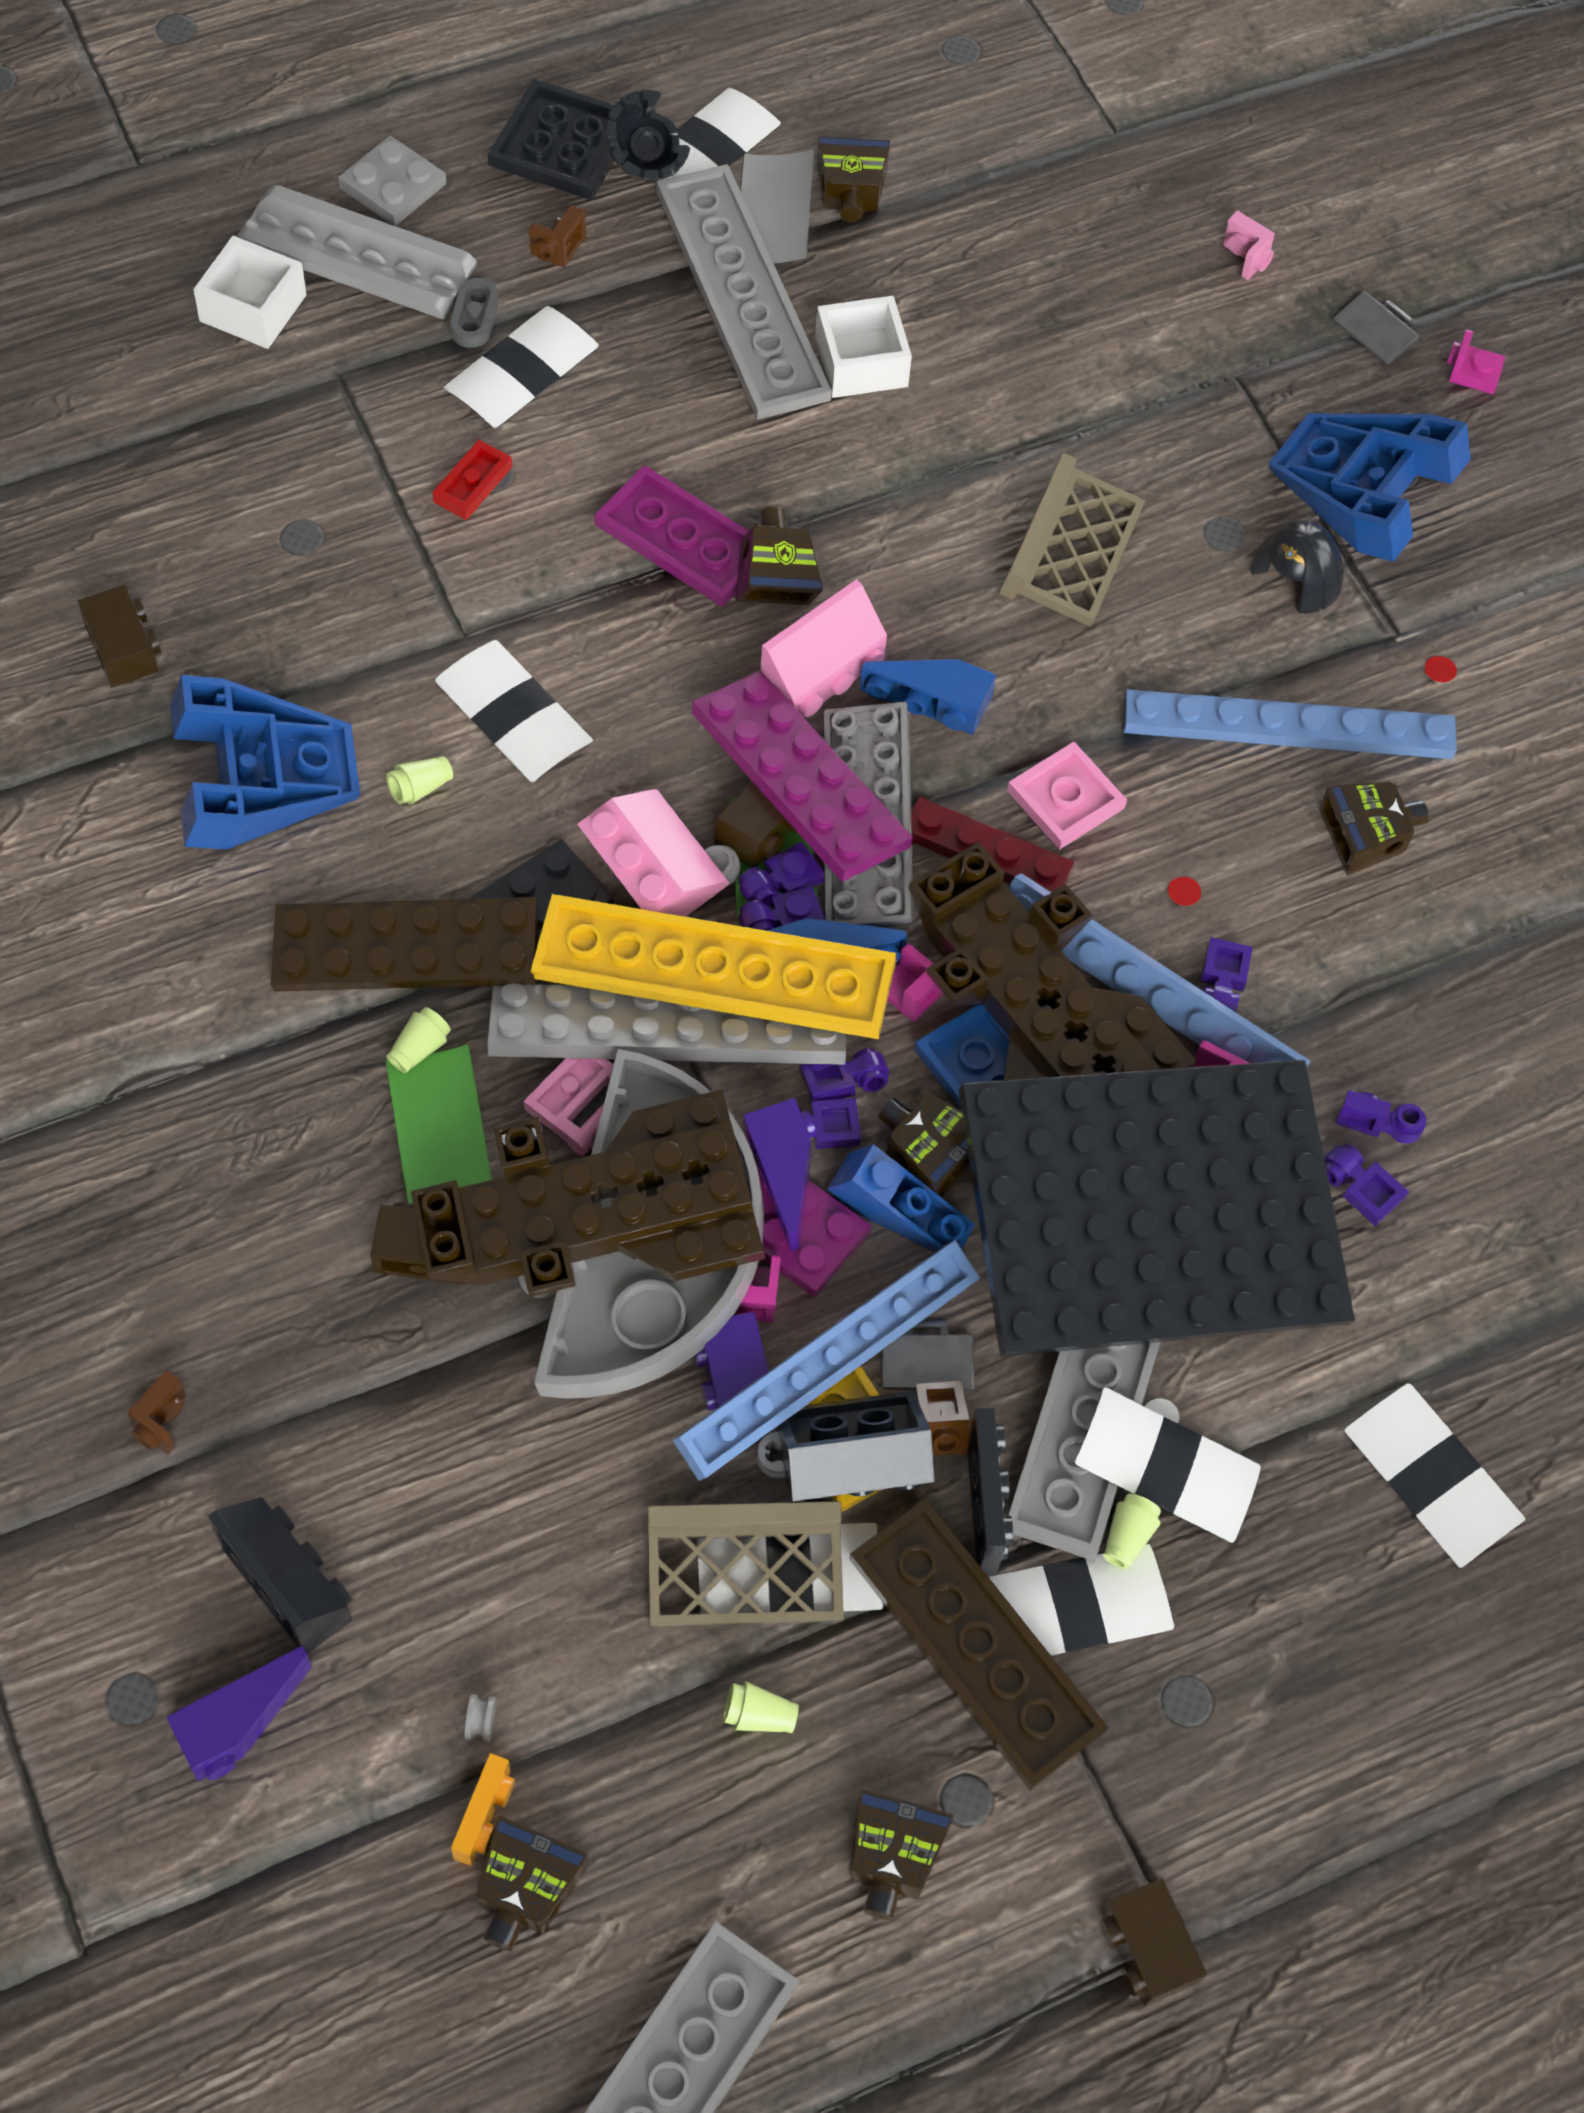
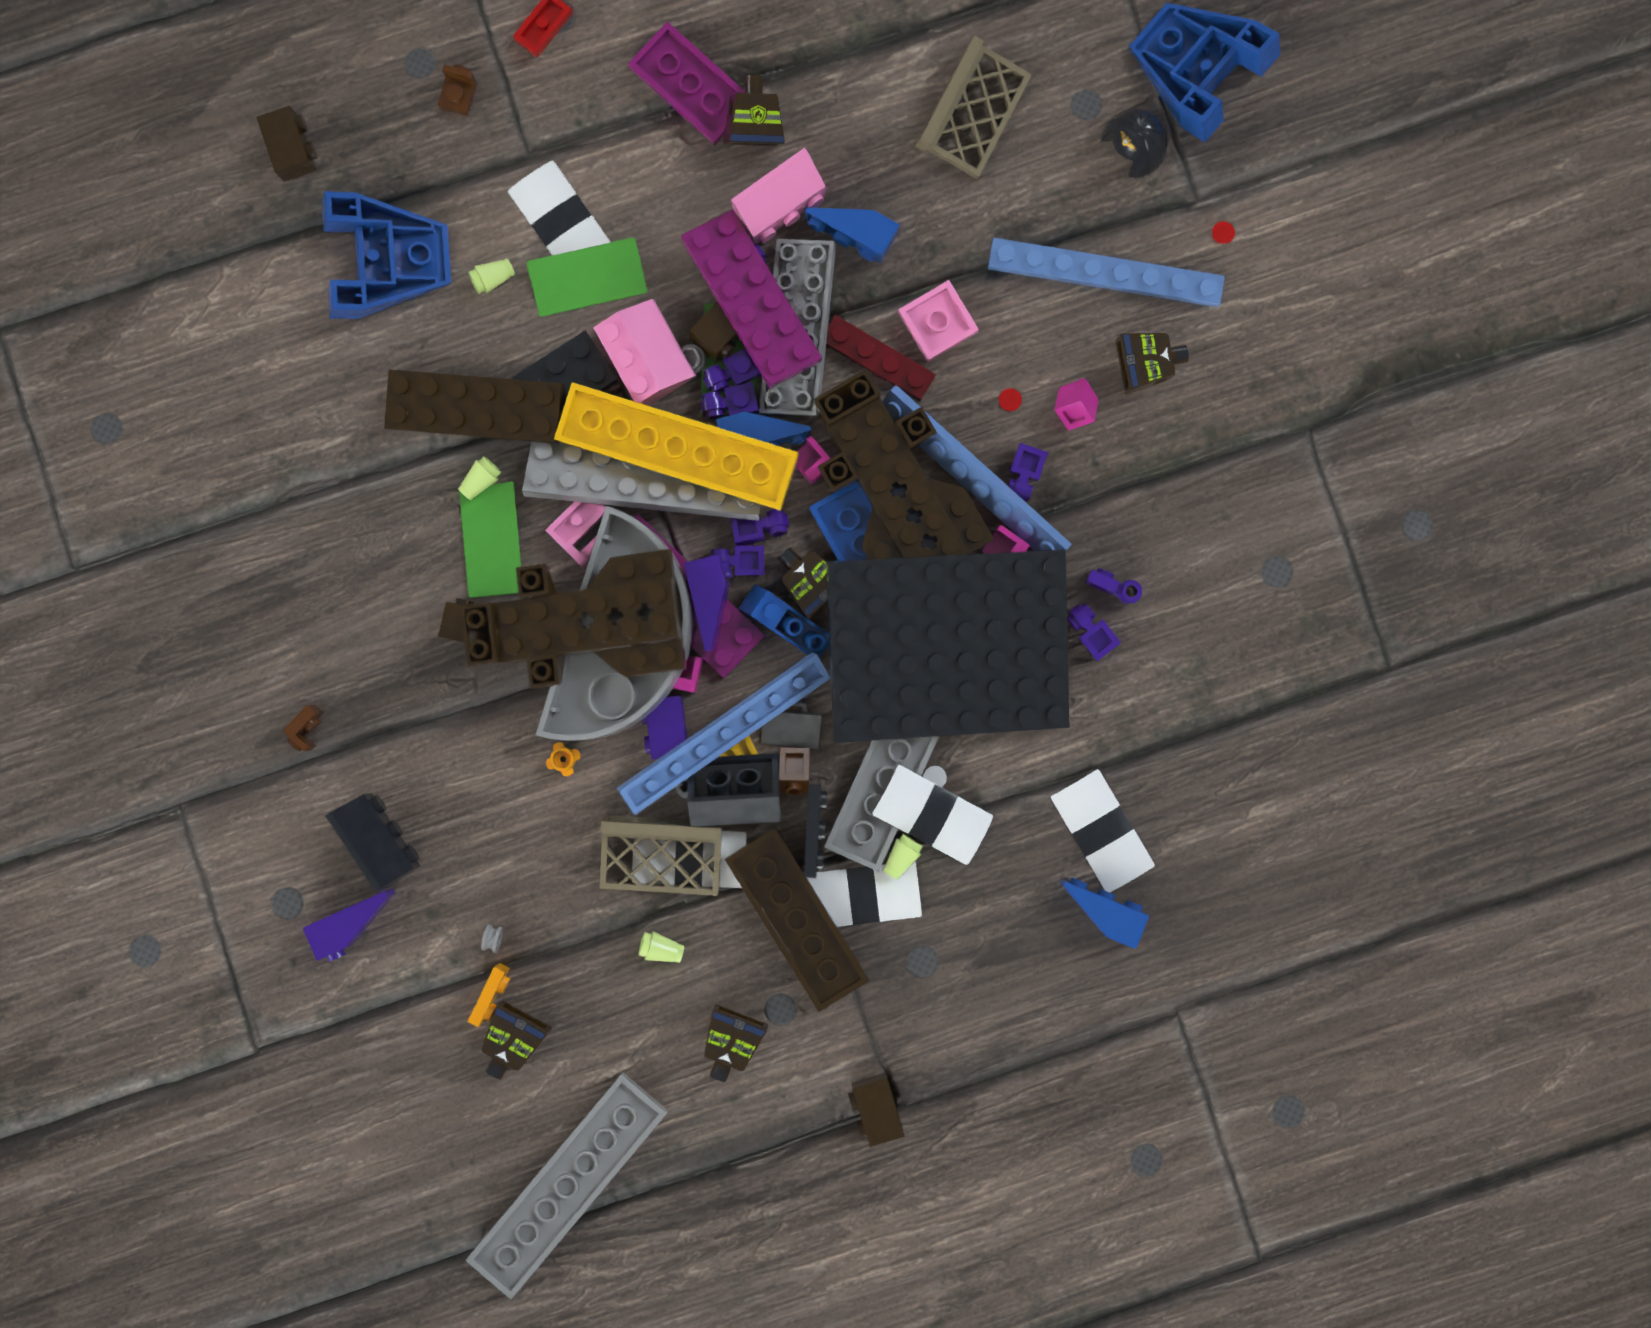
camera: 10 degrees right, 25 degrees up
(357, 560) = (457, 89): none -> reddish brown bracket
(556, 774) = (587, 277): none -> bright green sticker
(574, 1418) = (555, 762): none -> light orange plate
(1281, 885) = (1076, 404): none -> dark pink panel
(1476, 1596) = (1112, 918): none -> blue slope

